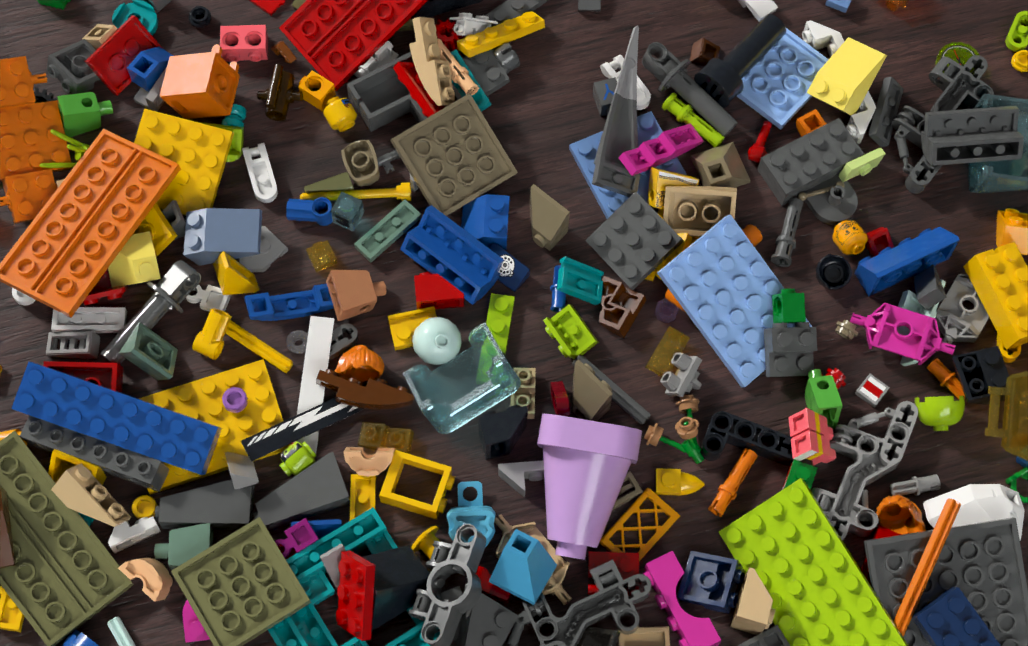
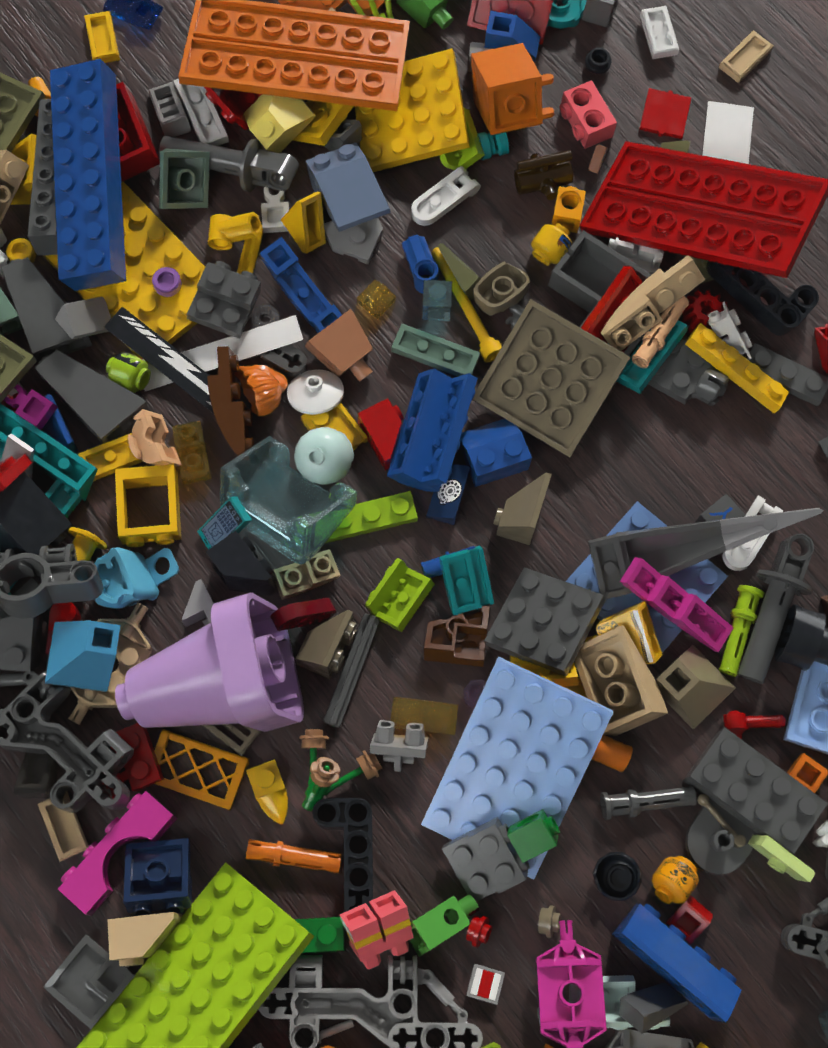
camera: 65 degrees right, 5 degrees up
(272, 361) = (224, 299): none -> dark grey plate
(385, 333) = (315, 392): none -> white dish
(461, 432) = (224, 521): none -> tile

